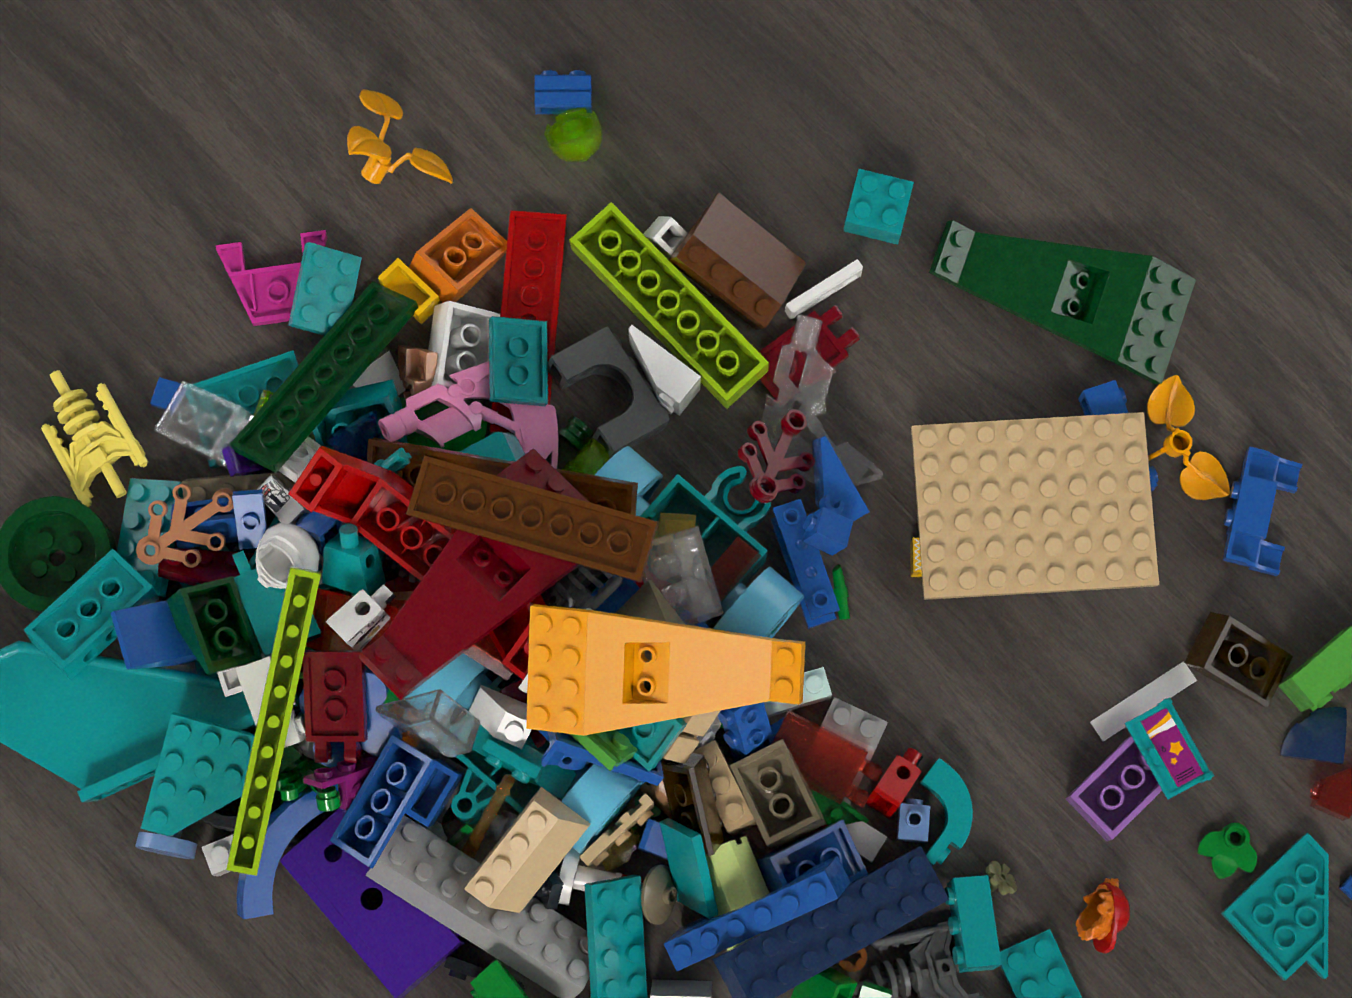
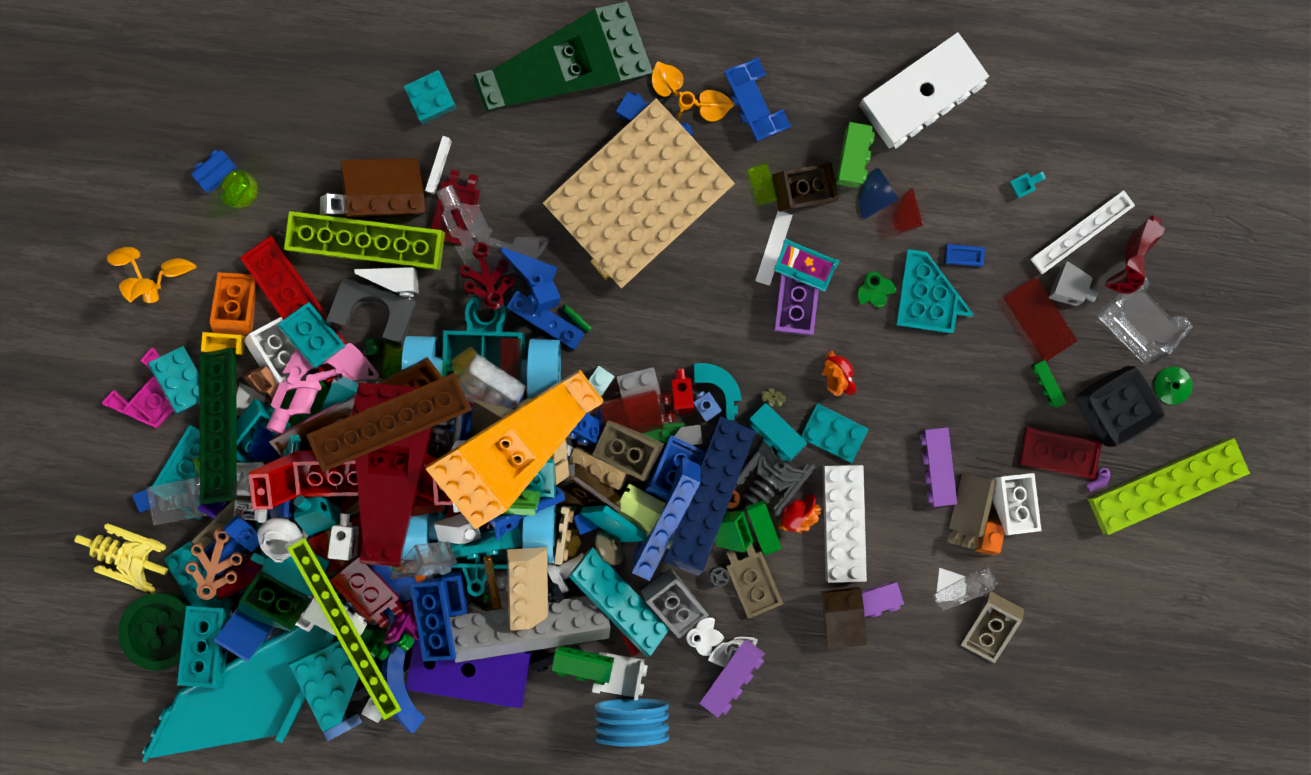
camera: 40 degrees left, 10 degrees up
(1189, 615) = (762, 184): none -> clear neon green slope

